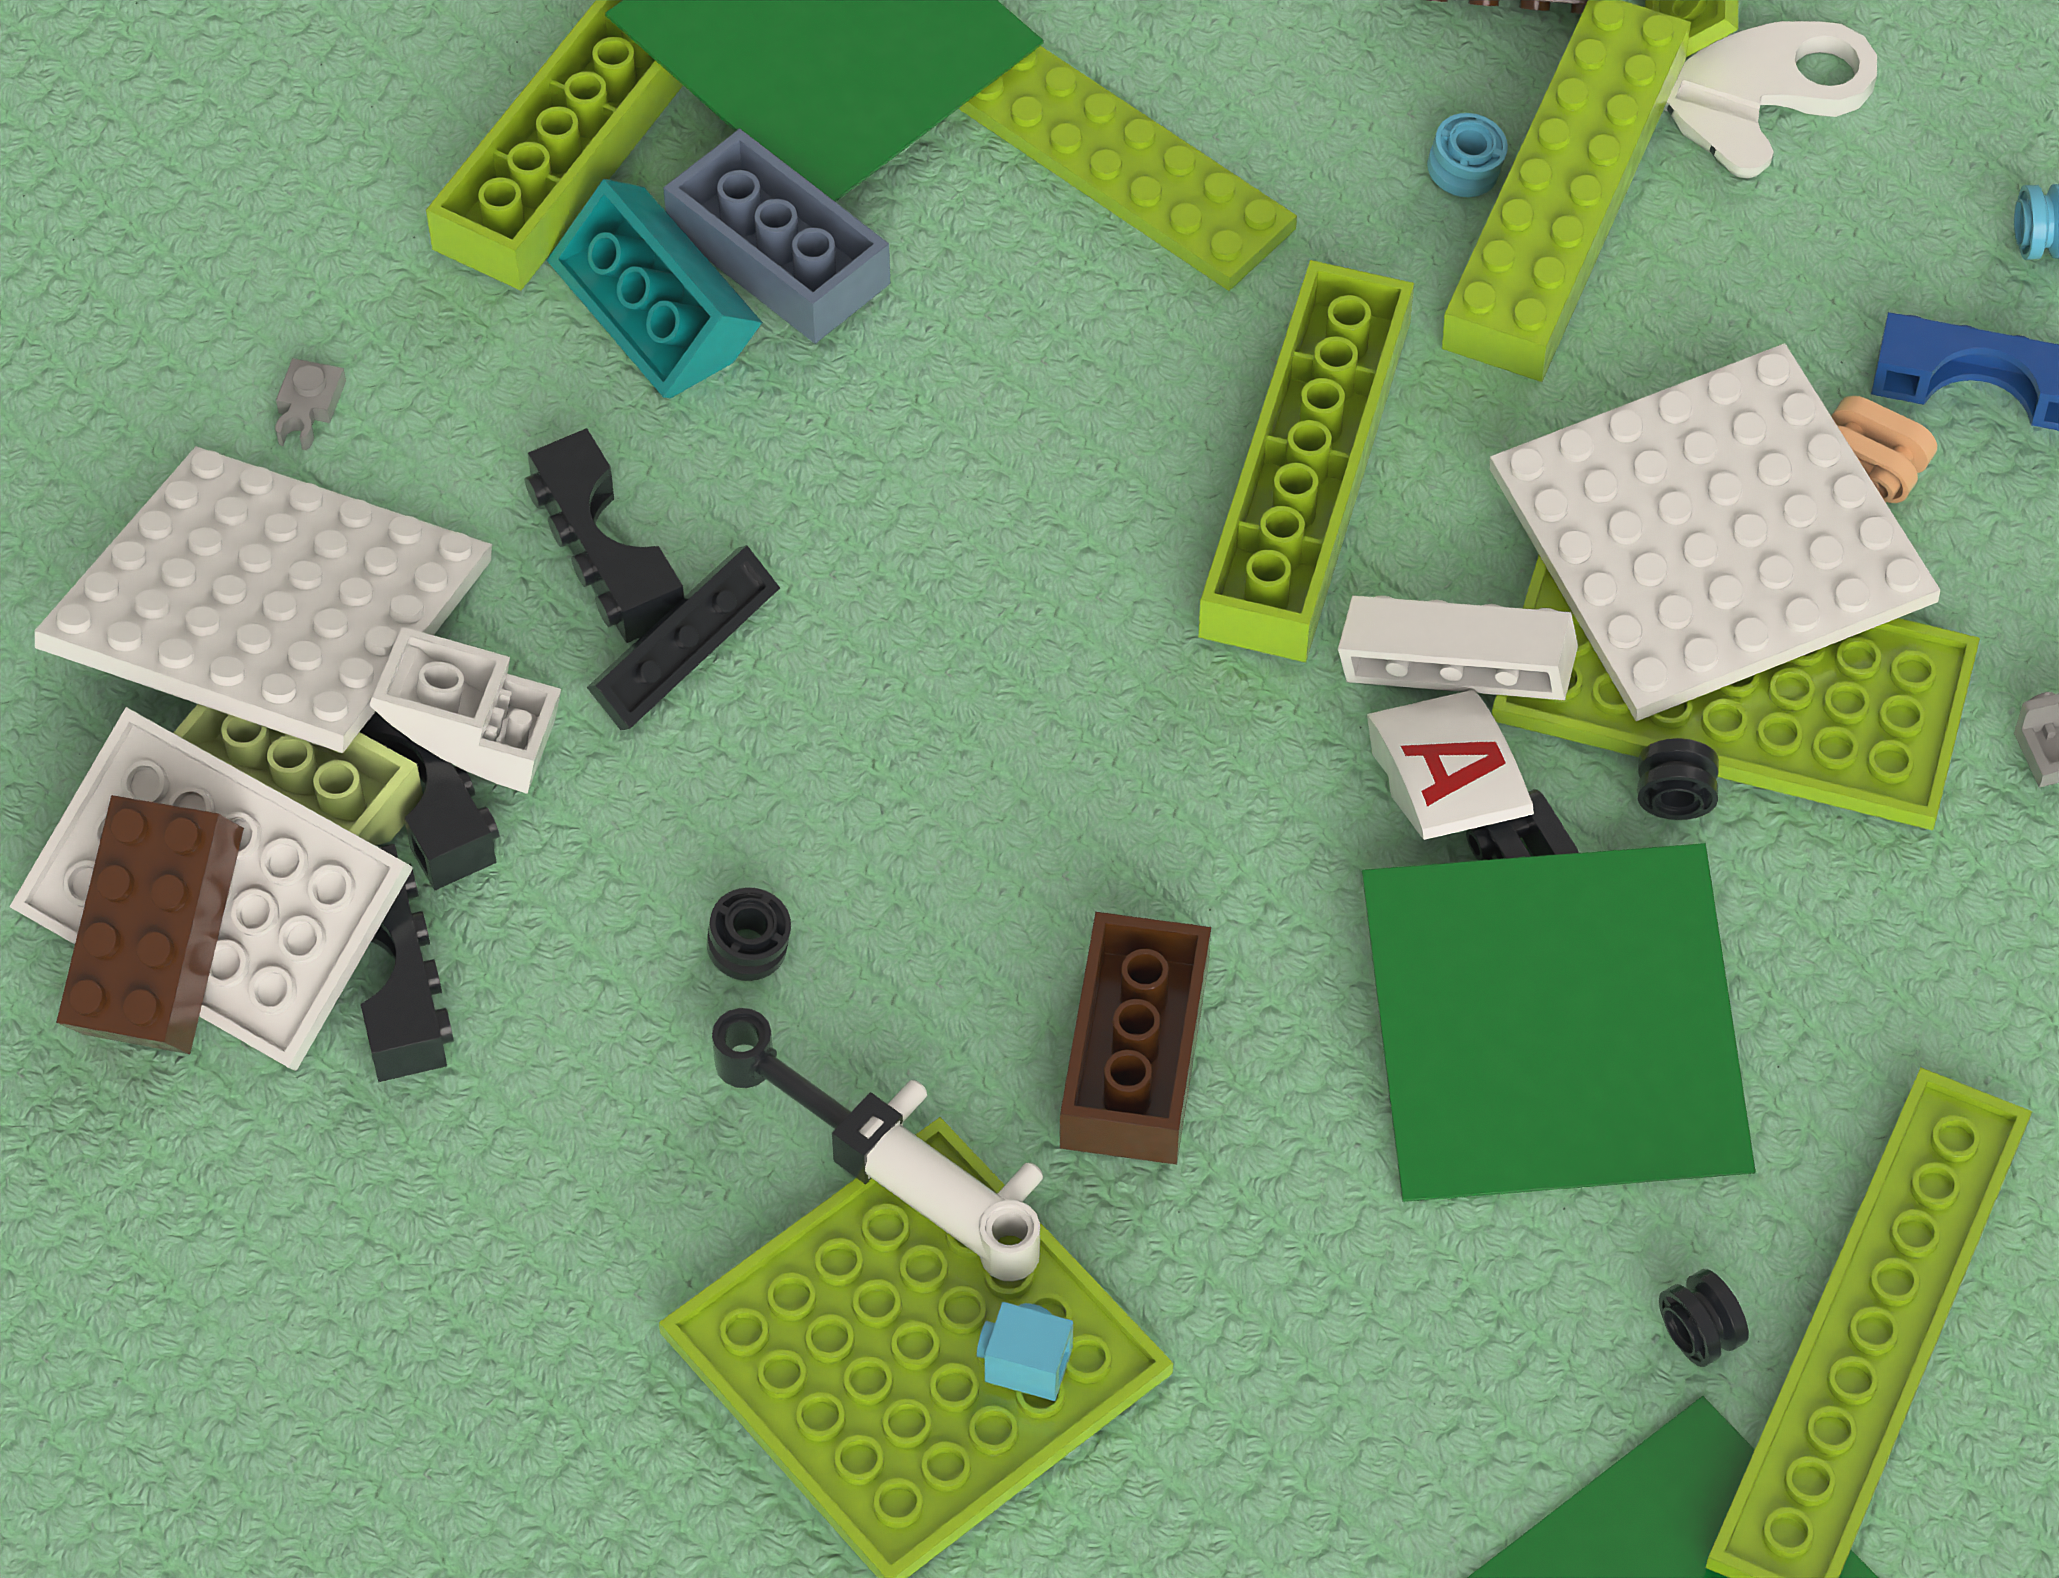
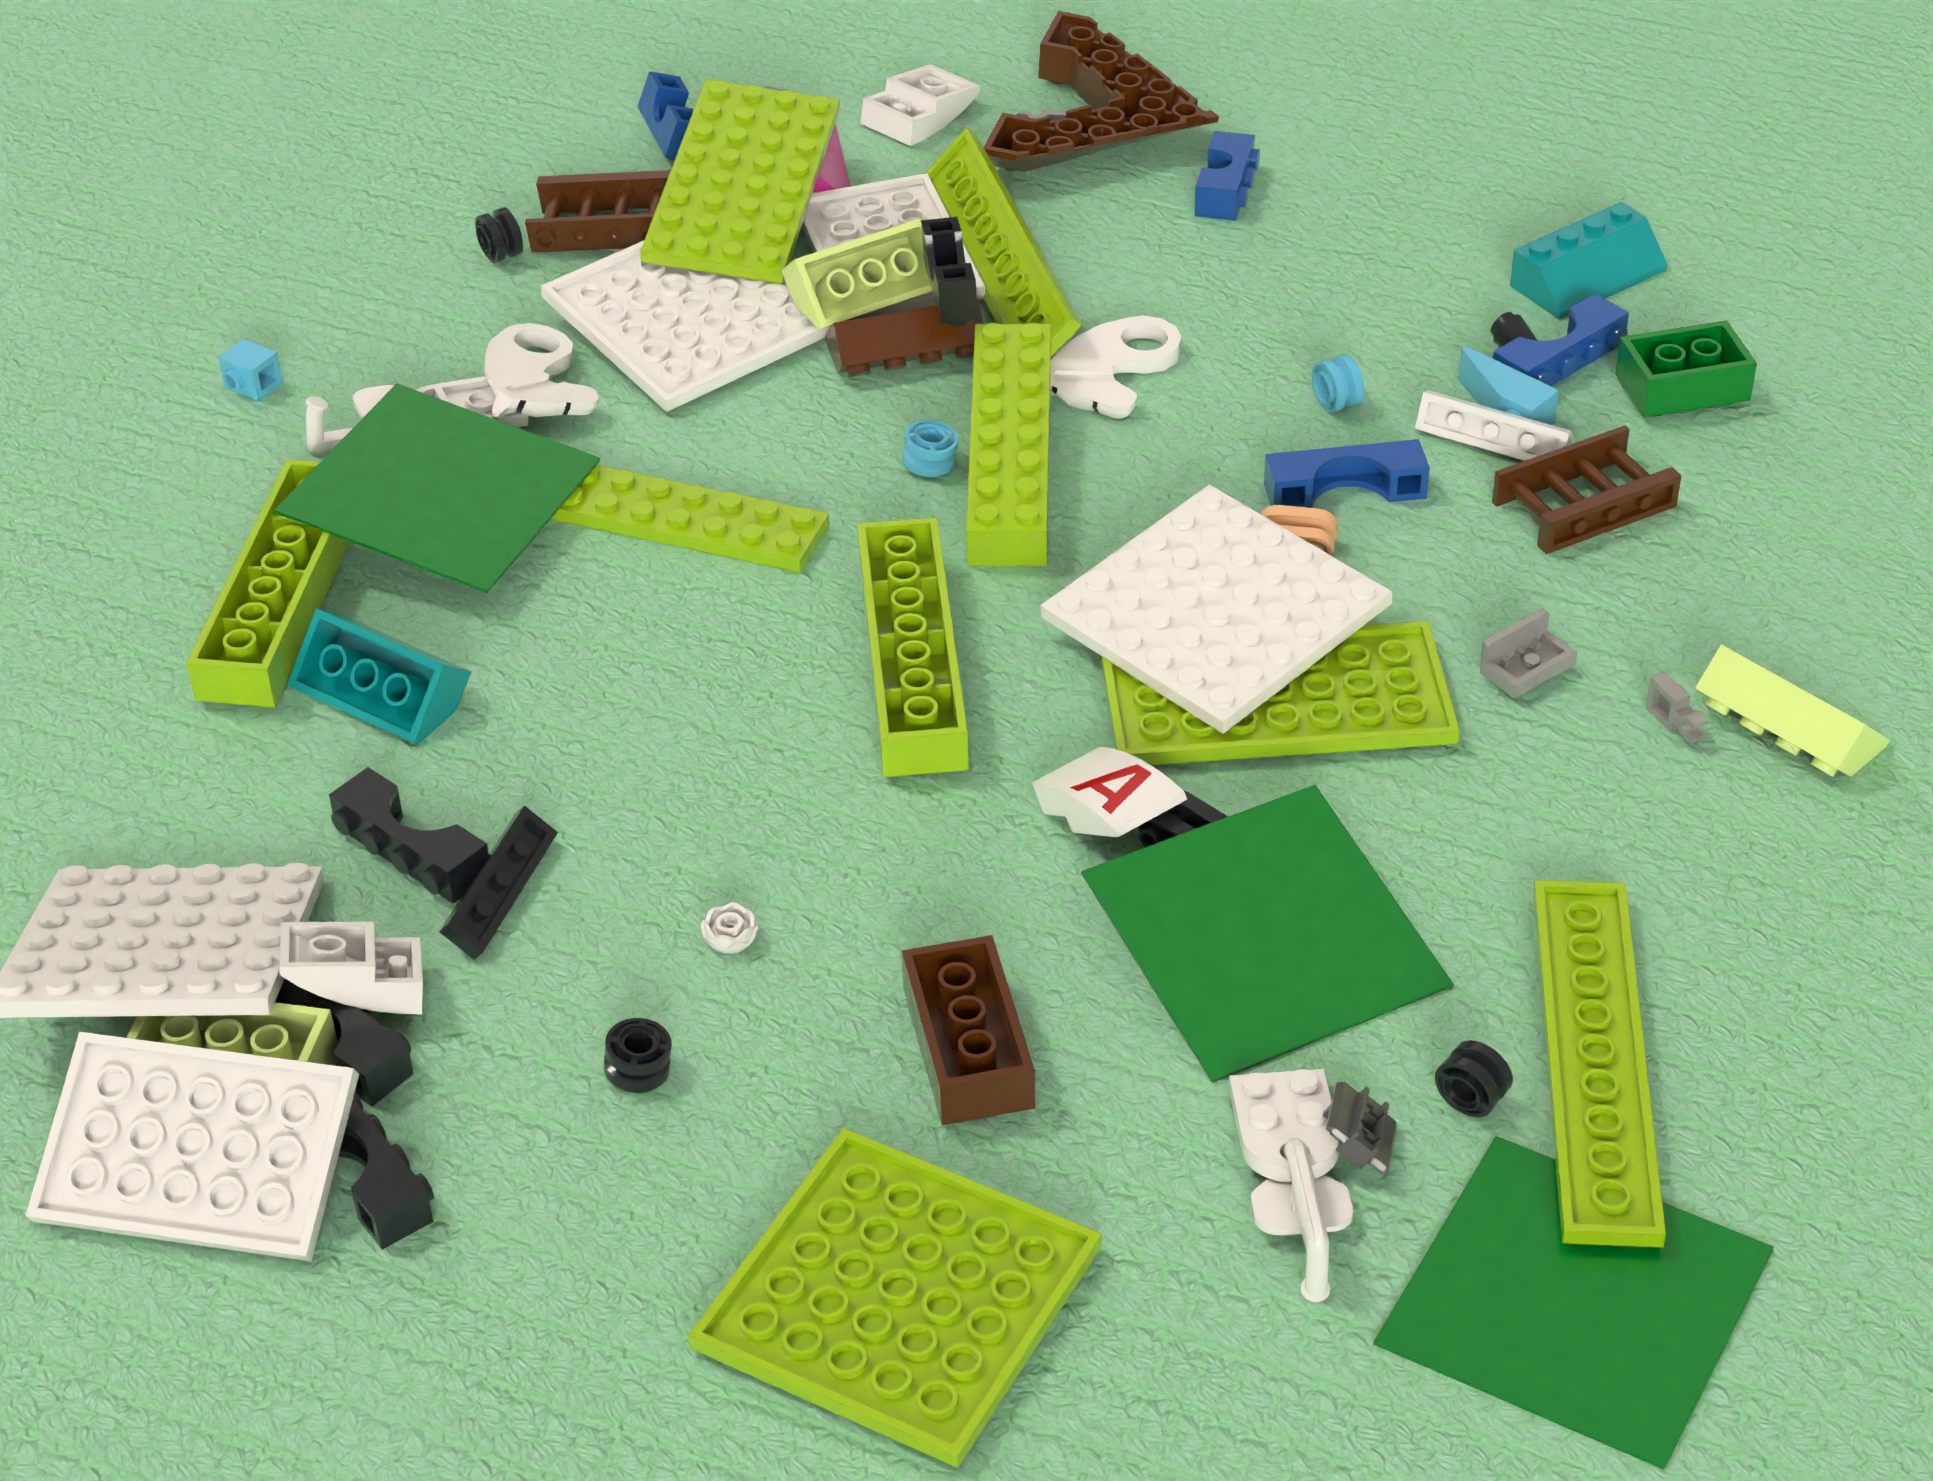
camera: 20 degrees left, 15 degrees down
(150, 924) = (155, 1181): reddish brown brick -> none
(307, 395) = (134, 816): light grey plate -> none
(778, 235) = (461, 616): sand blue brick -> none
(877, 1146) = (806, 1154): white piece -> none
(925, 779) = (729, 928): none -> white plate
(1026, 1349) = (990, 1254): medium azure brick -> none
(1451, 1290) = (1289, 1145): none -> white plate
(1458, 647) = (1076, 722): white brick -> none
(1537, 1335) = (1361, 1127): none -> dark grey piece
(1678, 779) = (1271, 758): black wheel -> none

